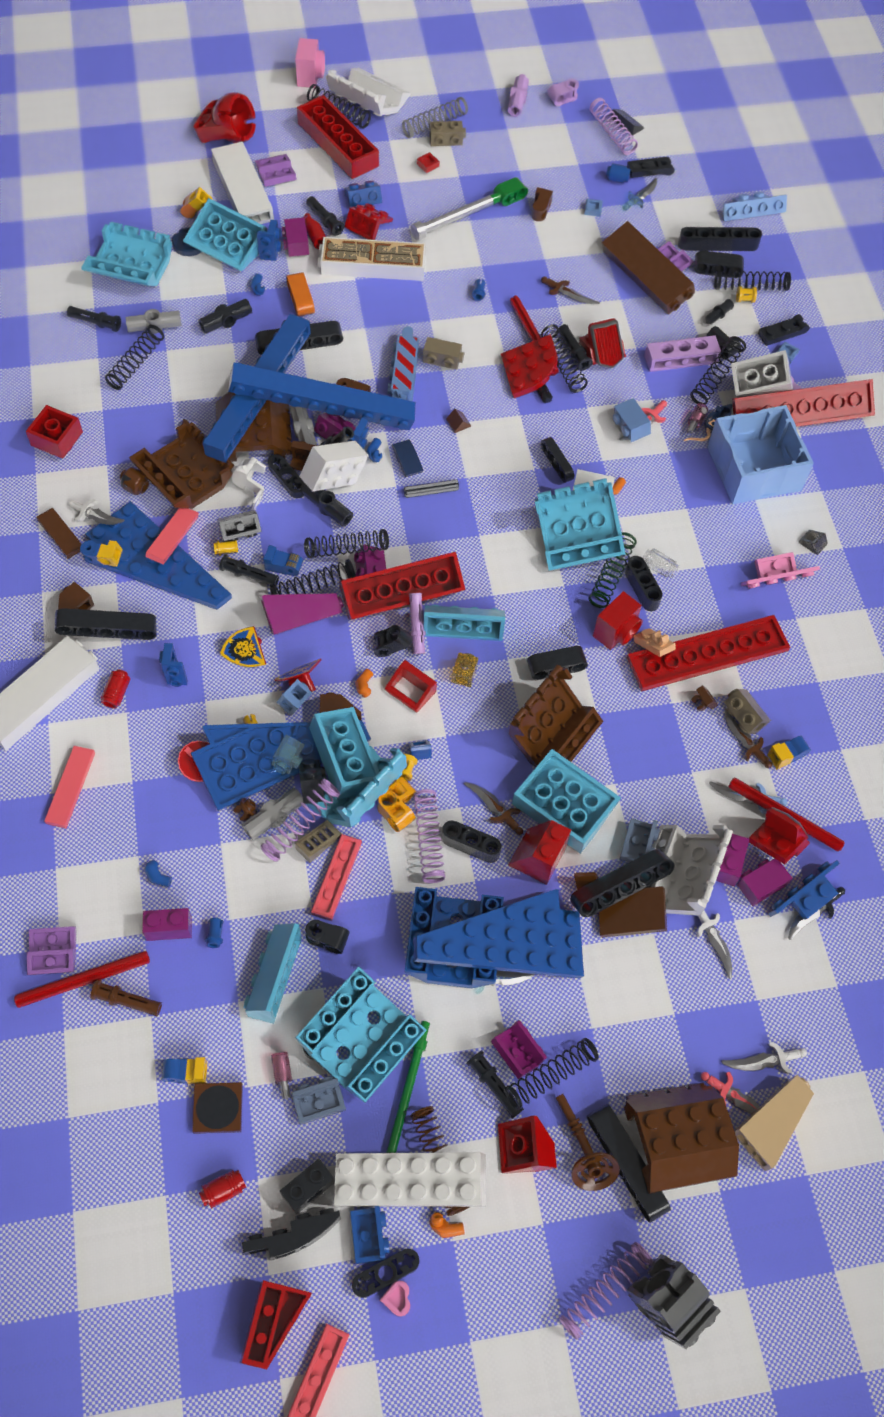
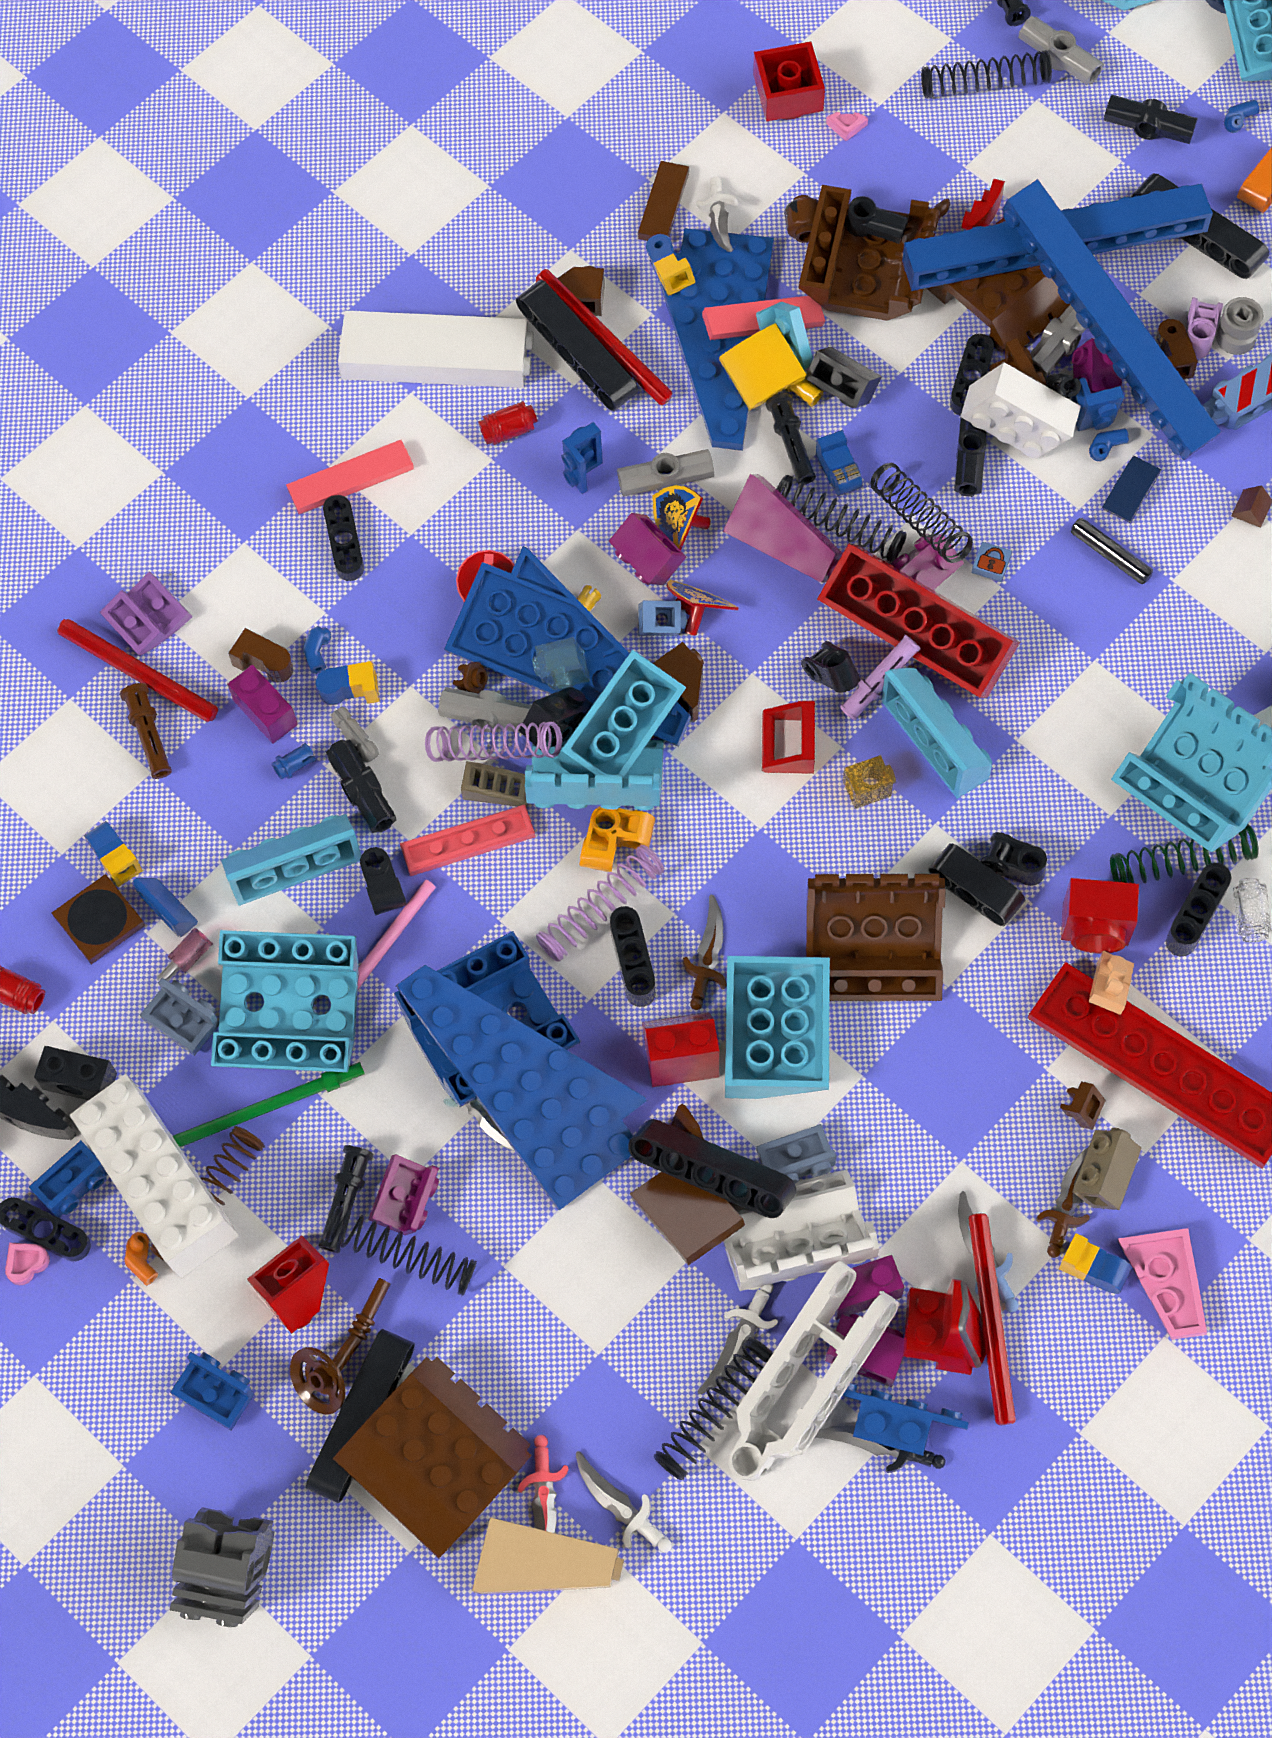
camera: 60 degrees right, 5 degrees up
(99, 429) = (846, 124): none -> bright pink tile
(108, 823) = (352, 546): none -> black beam
(137, 903) = (263, 654): none -> reddish brown leg
(151, 608) = (613, 345): none -> red axle
(166, 453) = (874, 220): none -> black piece
(194, 870) = (348, 682): none -> leg
(195, 531) = (791, 326): none -> medium azure bracket
(201, 552) = (762, 366): none -> yellow slope
(205, 407) = (986, 209): none -> red slope
(220, 629) = (648, 475): none -> light grey piece
(226, 890) = (354, 732): none -> light grey axle
(241, 1063) = (165, 905): none -> blue slope
(243, 474) = (916, 321): white piece -> none
(251, 675) = (646, 549): none -> magenta brick
(260, 907) = (361, 786): none -> black piece
(350, 370) = (1202, 325): none -> lavender piece
(355, 941) = (394, 931): none -> bright pink bar
(362, 685) = (747, 679): orange arm -> none
(366, 359) = (1239, 325): none -> light grey wheel
(395, 538) = (991, 561): none -> tile
(411, 762) = (672, 811): yellow bush -> none
(420, 749) = (712, 811): blue slope -> none
(555, 639) = (1013, 856): none -> black piece
(558, 1237) = (213, 1391): none -> blue bracket
(570, 1325) = (120, 1470): lavender piece -> none
(731, 931) = (666, 1460): none -> black piece
(782, 965) = (761, 1445): none -> white piece
(818, 726) = (1169, 1278): none -> bright pink wing

